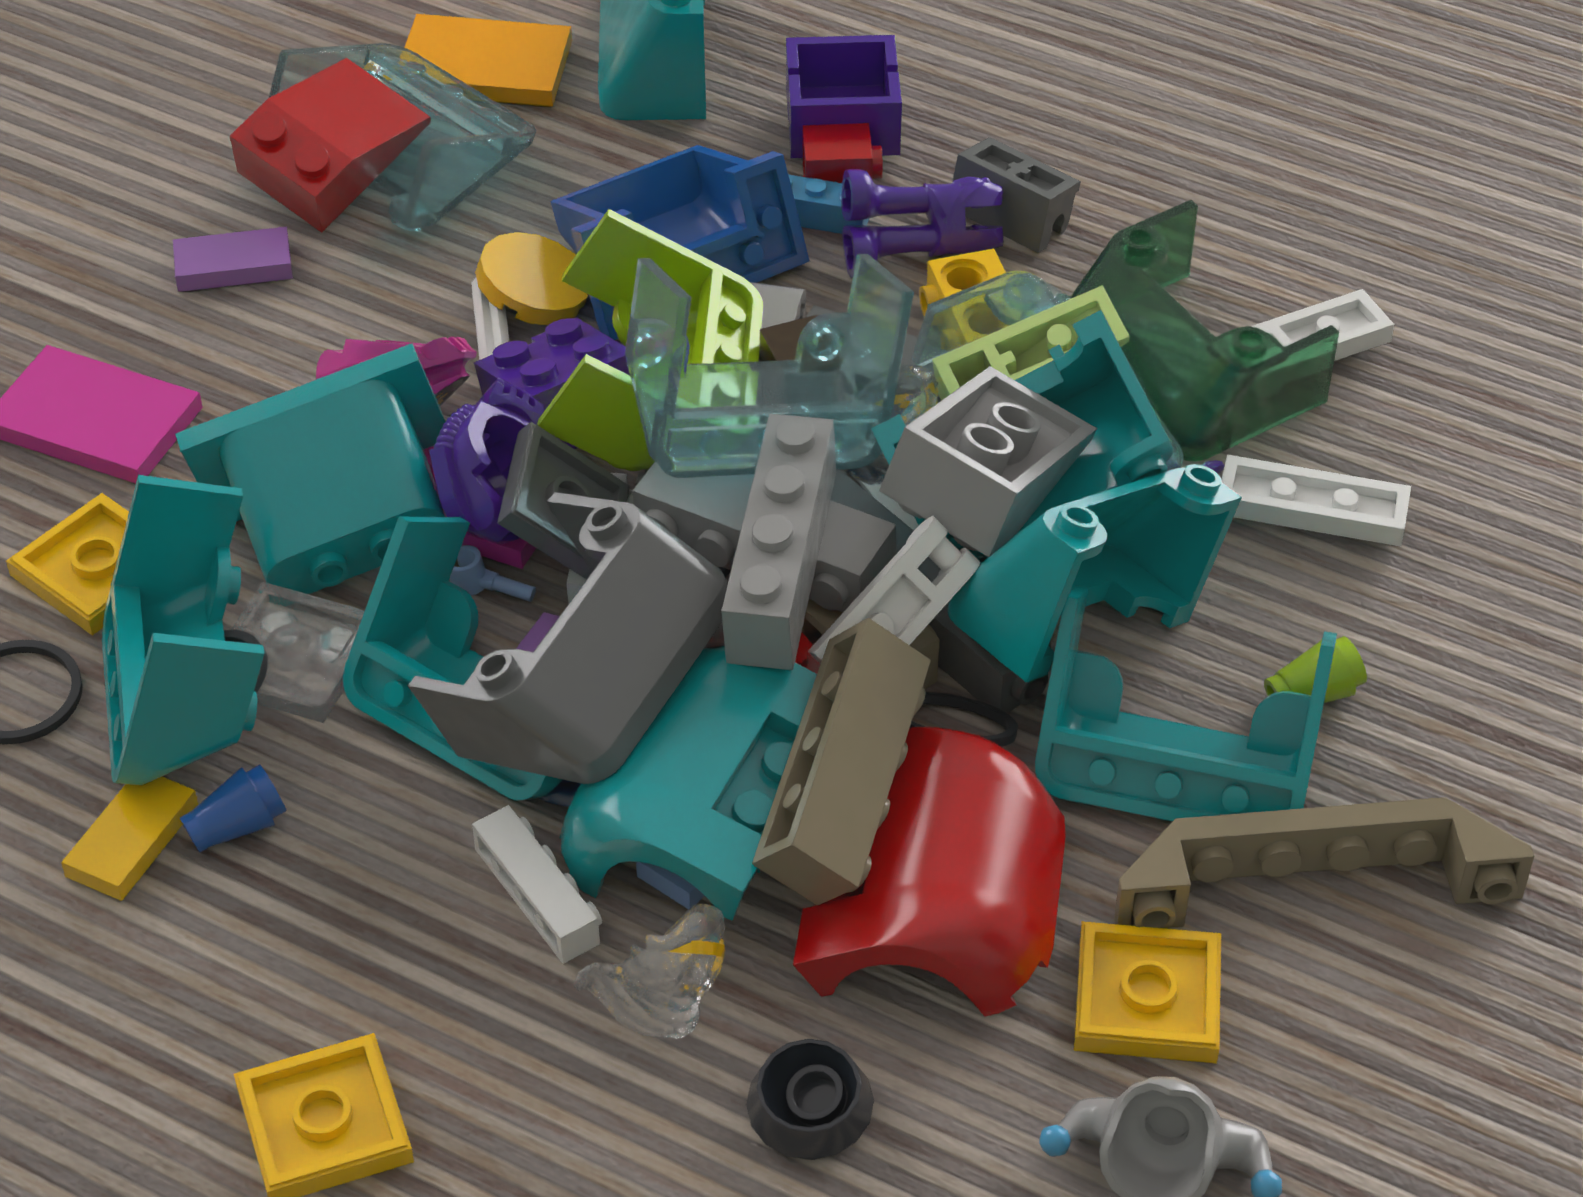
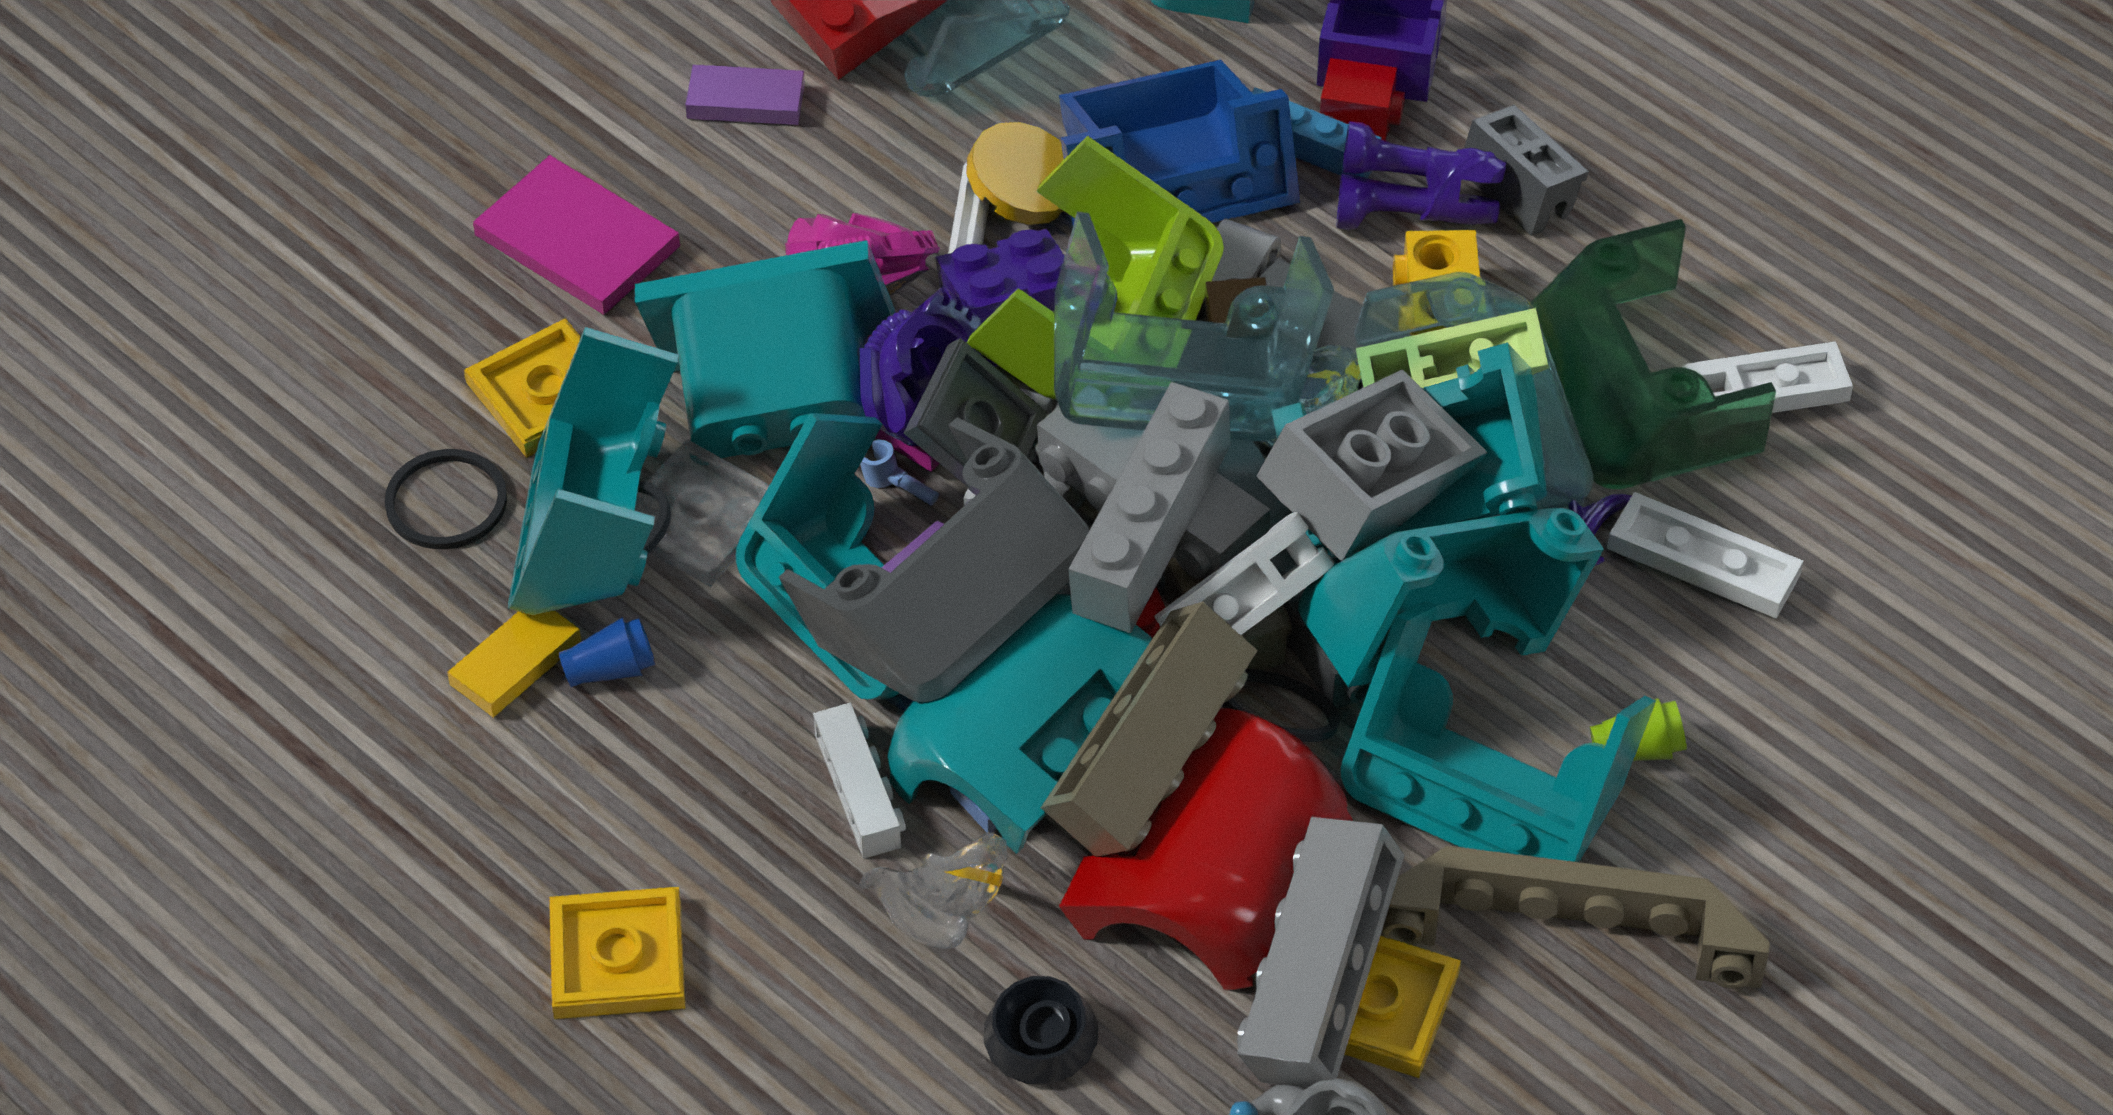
camera: 15 degrees right, 5 degrees up
(1086, 954) = (1320, 952): none -> light grey brick

